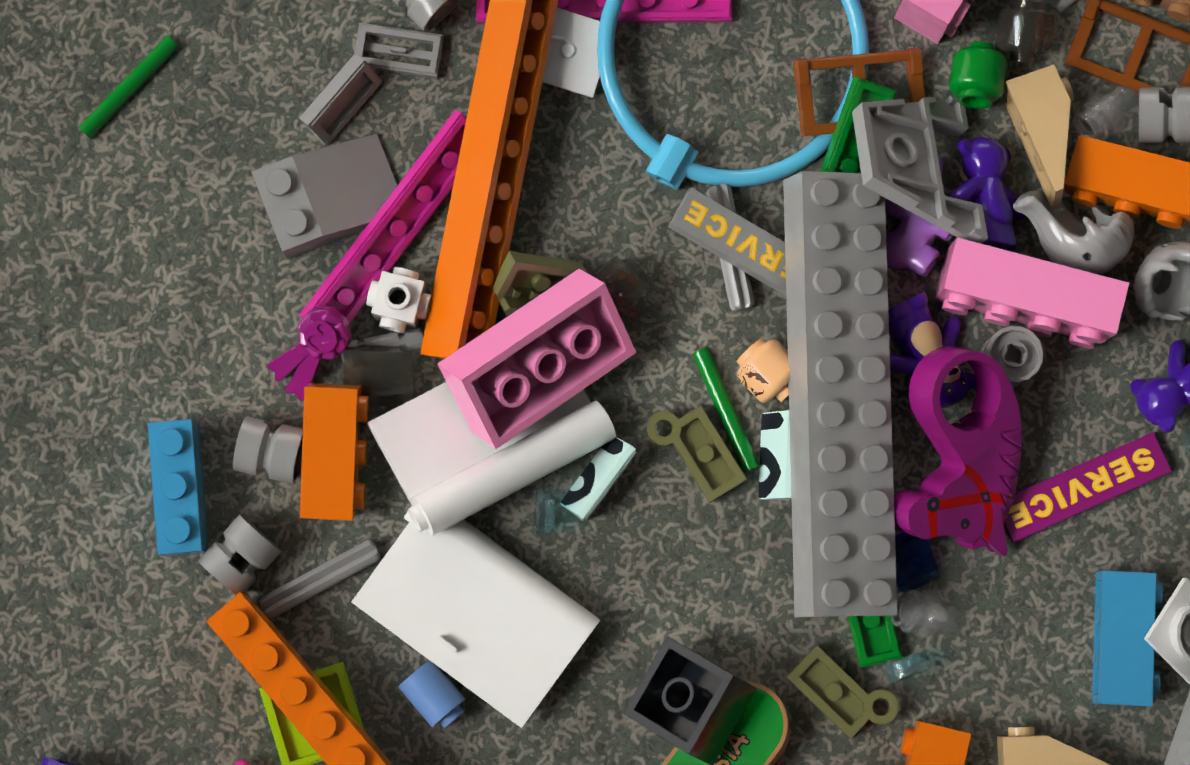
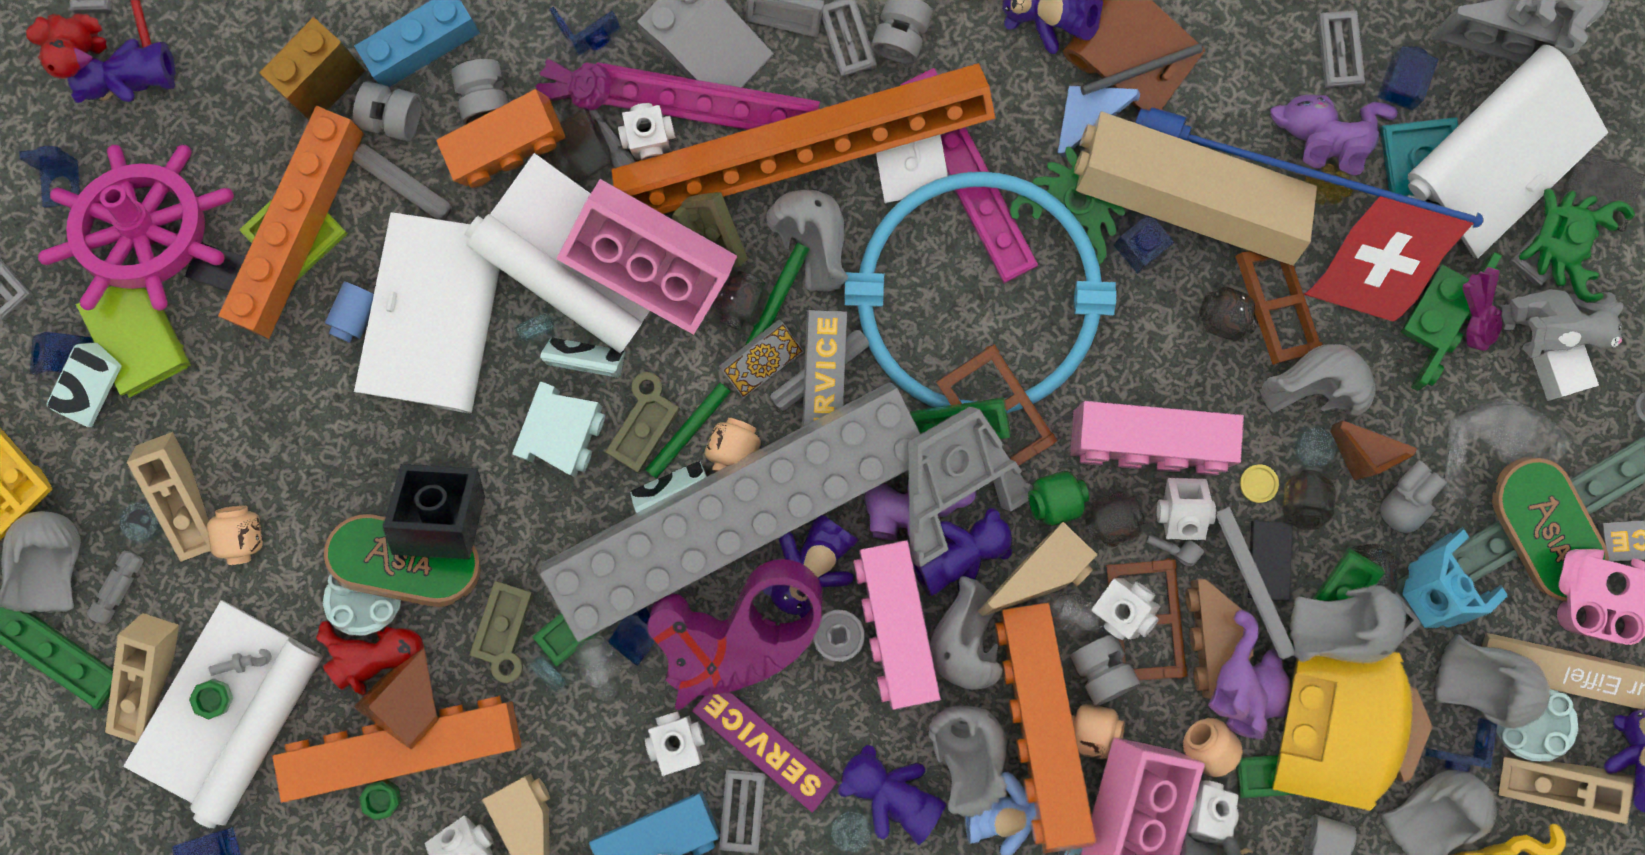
camera: 65 degrees right, 0 degrees up
(163, 609) = (312, 69): none -> pearl gold brick
(269, 307) = (593, 36): none -> clear blue bracket
(591, 175) = (817, 224): none -> light grey piece
(633, 250) = (780, 289): none -> green bar
(665, 537) = (559, 430): none -> light aqua hips
(690, 299) = (761, 358): none -> tile
(1055, 567) = (671, 758): none -> white brick
(1104, 522) = (744, 776): none -> light grey tile
(1118, 77) = (1114, 609): none -> white brick

